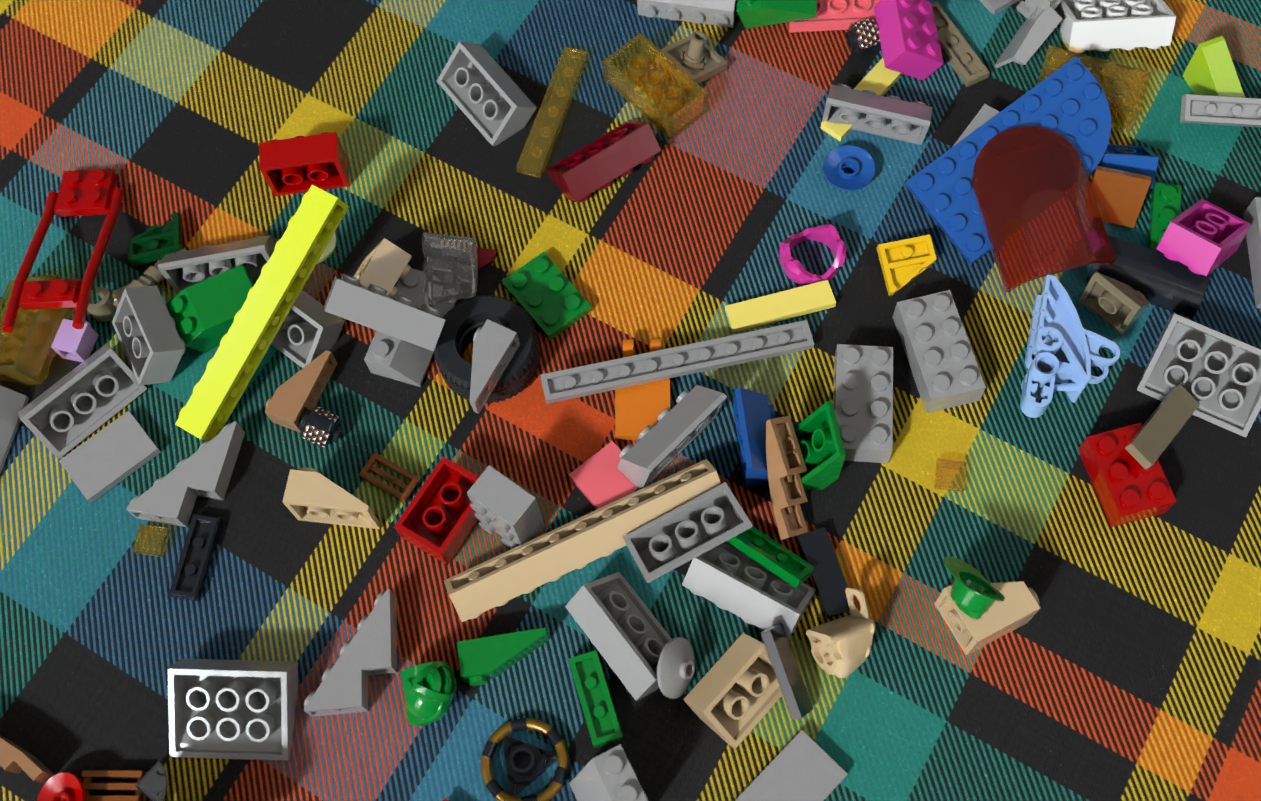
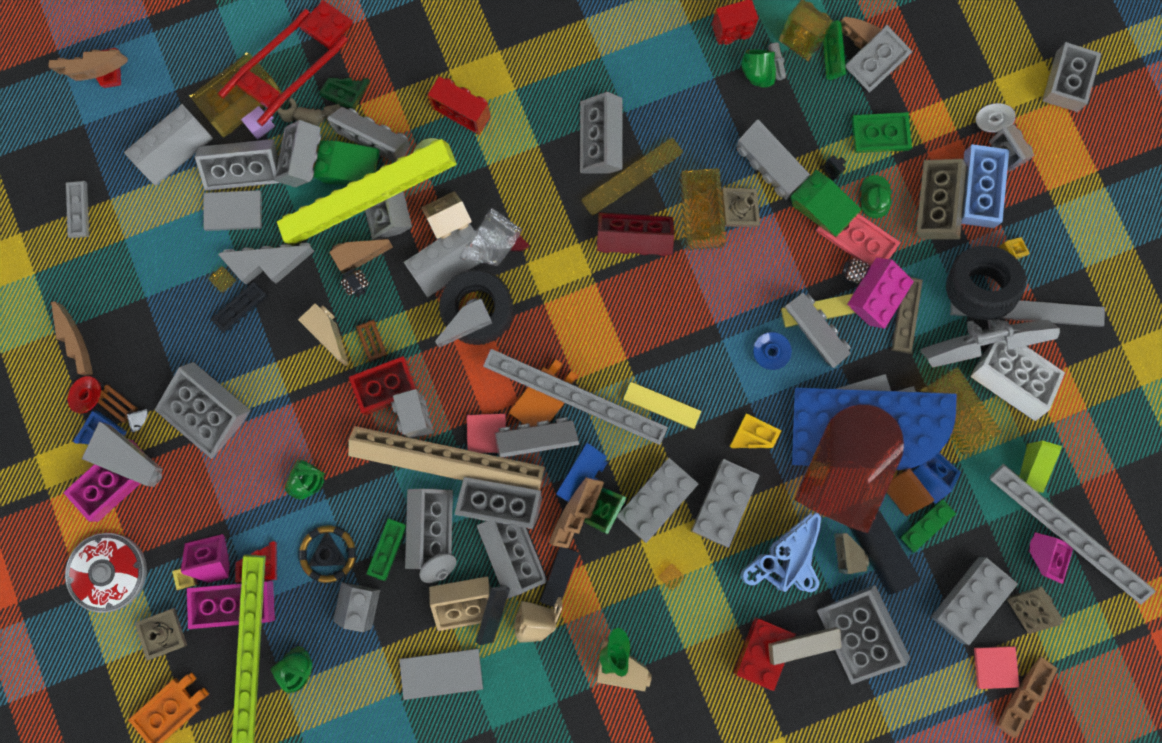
camera: 30 degrees right, 15 degrees up
(367, 654) = (290, 434): light grey slope -> none
(383, 313) = (427, 250): light grey brick -> none
(492, 655) = (349, 485): green slope -> none
(546, 296) = (537, 296): green plate -> none
(772, 556) = (538, 549): green plate -> none
(823, 233) = (724, 383): dark pink piece -> none
(1203, 237) = (931, 558): dark pink brick -> none

